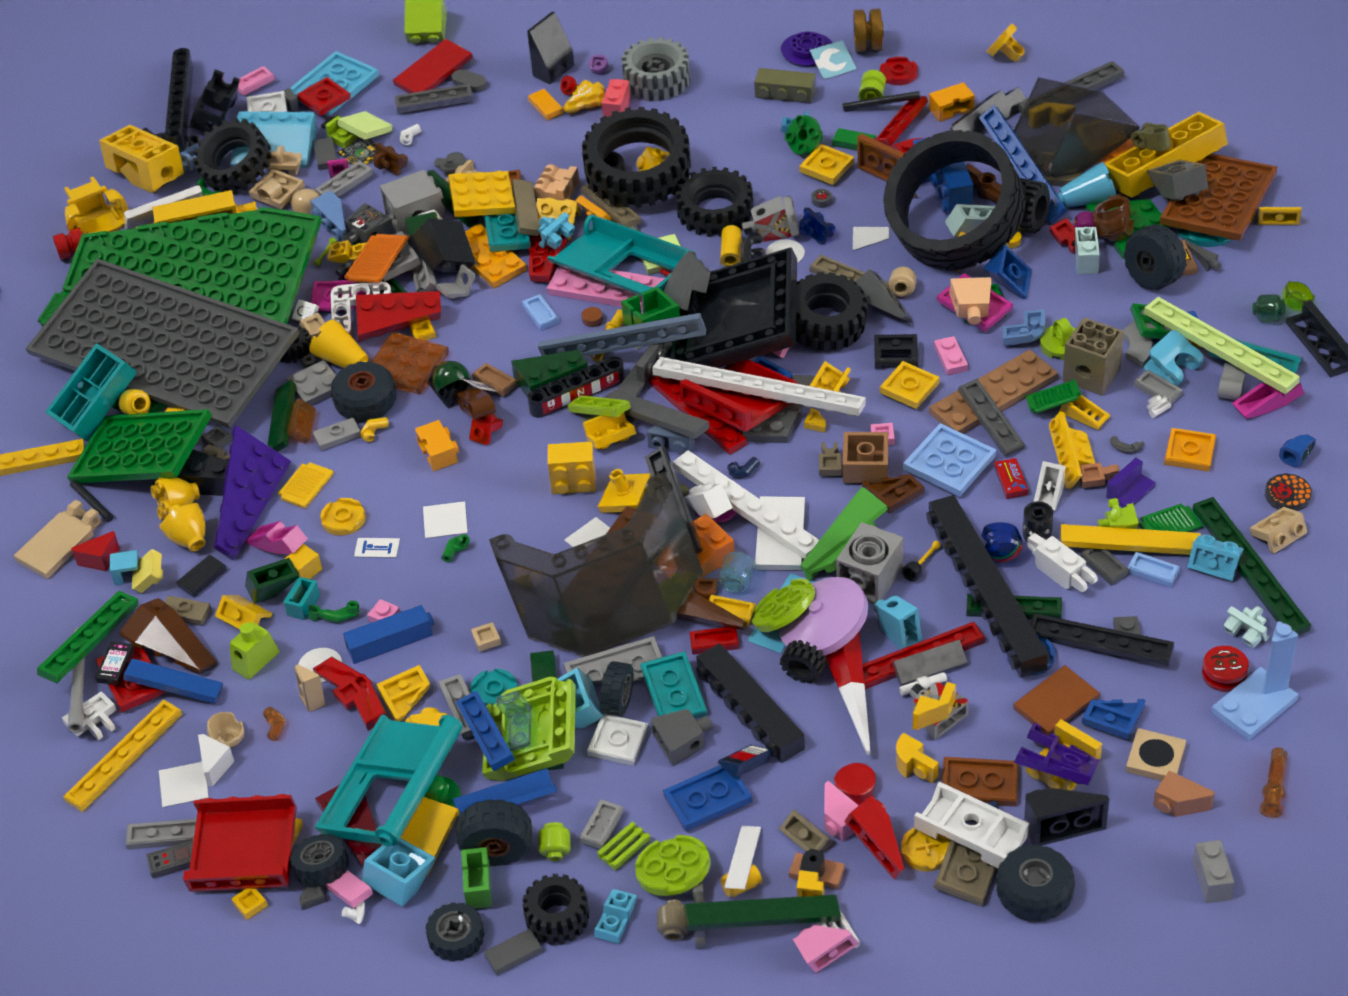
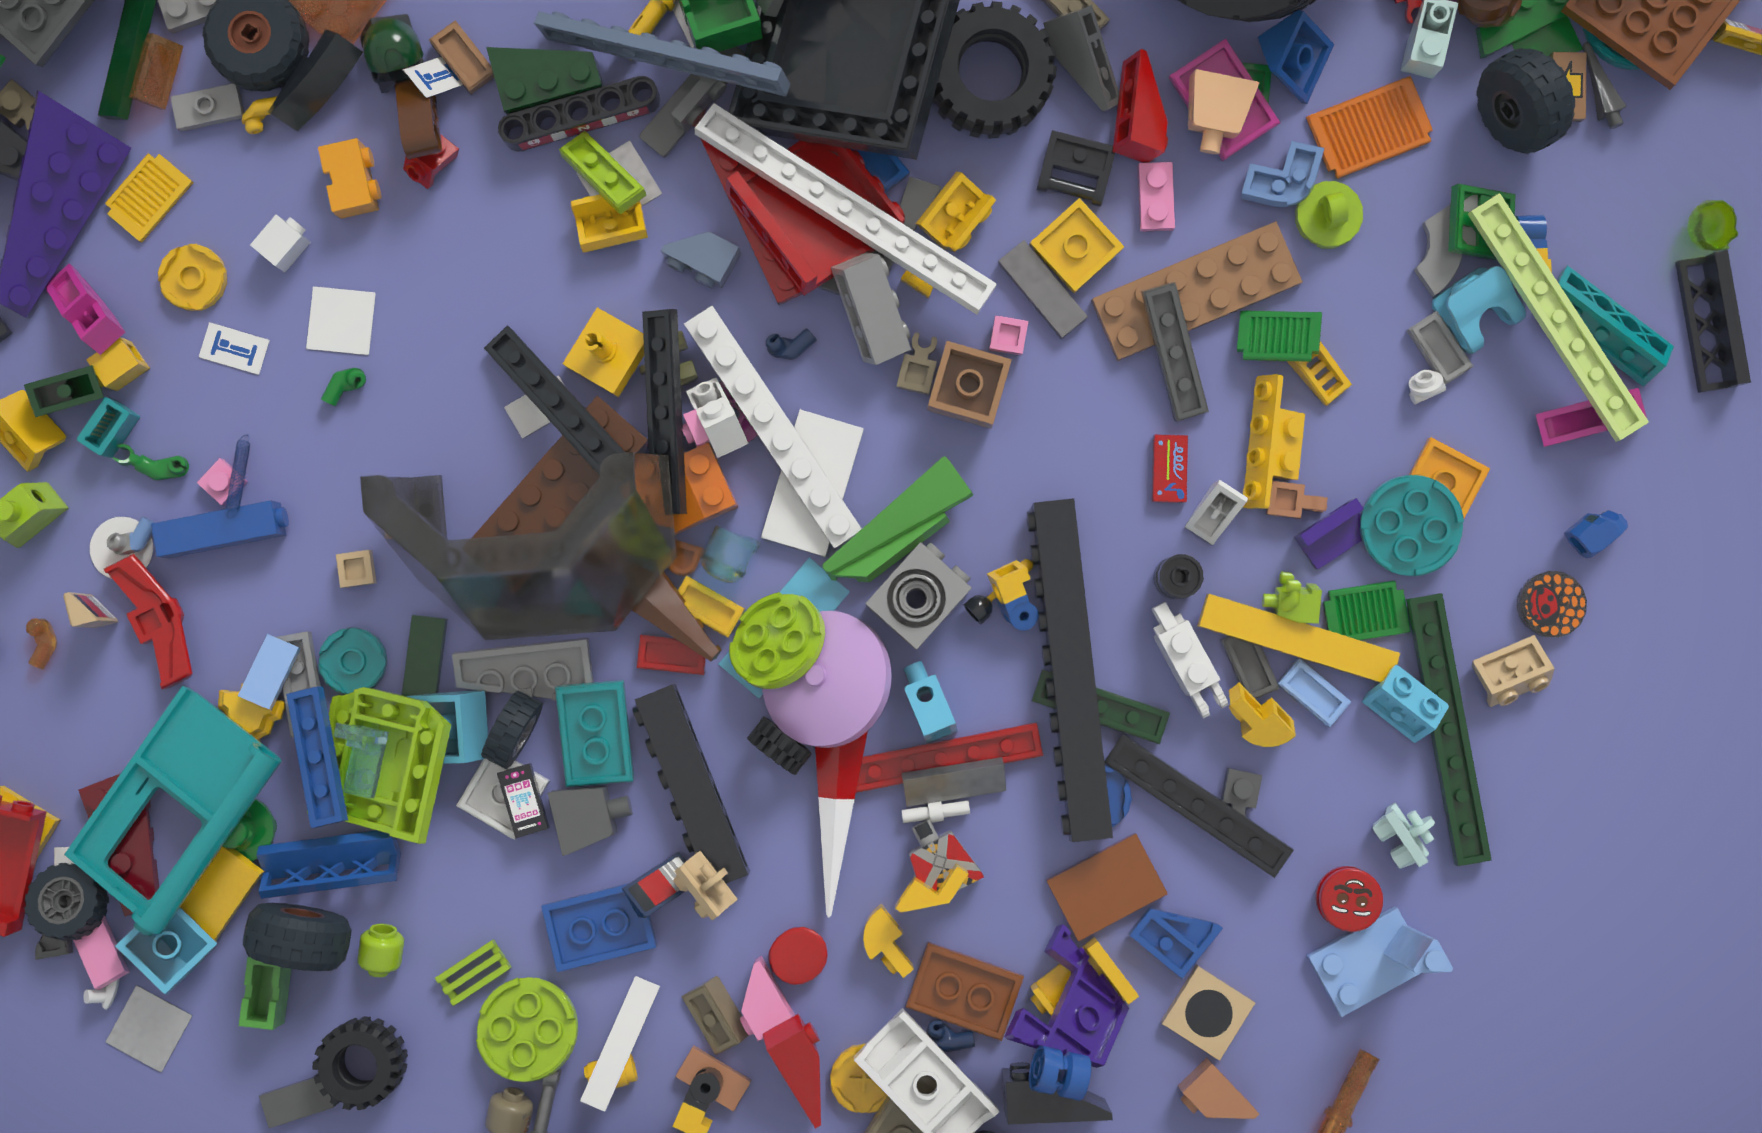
camera: 10 degrees right, 40 degrees up
(217, 437) = (25, 70): dark grey tile -> none
(334, 650) = (133, 541): none -> arm
(391, 935) = (148, 1028): none -> flat silver sticker
(395, 599) = (232, 478): none -> blue piece
(398, 484) = (281, 242): none -> white brick
(403, 691) = (225, 637): yellow wing -> none
(405, 402) = (315, 80): none -> black slope
(440, 694) = (269, 672): none -> light blue tile
(442, 934) = (209, 1066): black wheel -> none
(571, 467) = (534, 293): yellow brick -> none
(589, 511) = (552, 398): none -> black tile
(601, 824) = (449, 934): light grey plate -> none
(615, 916) = (439, 1080): medium azure slope -> none
(634, 732) = (523, 800): none -> tile
(661, 415) = (681, 218): dark grey tile -> none
(695, 507) = (693, 429): none -> bright pink plate
(768, 735) = (705, 885): none -> tan hips
(790, 429) = (872, 308): none -> light grey brick
(895, 491) = (993, 452): reddish brown wing -> none
(896, 411) = (1042, 289): none -> flat silver tile
(902, 282) = (1126, 26): tan head -> none
(925, 316) = (1140, 112): none -> red slope
(932, 554) = (1011, 595): none -> leg
(949, 459) = (1091, 412): light blue plate -> none
(1004, 544) = (1122, 603): clear blue helmet -> none
(1060, 772) = (1065, 1073): none -> blue wheel
(1071, 299) = (1371, 127): none -> orange window
(1093, 355) = (1362, 282): dark tan brick -> none
(1126, 447) = (1351, 452): dark grey piece -> none
(1126, 585) = (1260, 724): none -> yellow brick
(1178, 470) = (1411, 525): none -> teal tile
(1231, 382) = (1547, 378): light grey axle -> none
(1269, 308) = (1660, 238): clear green head -> none

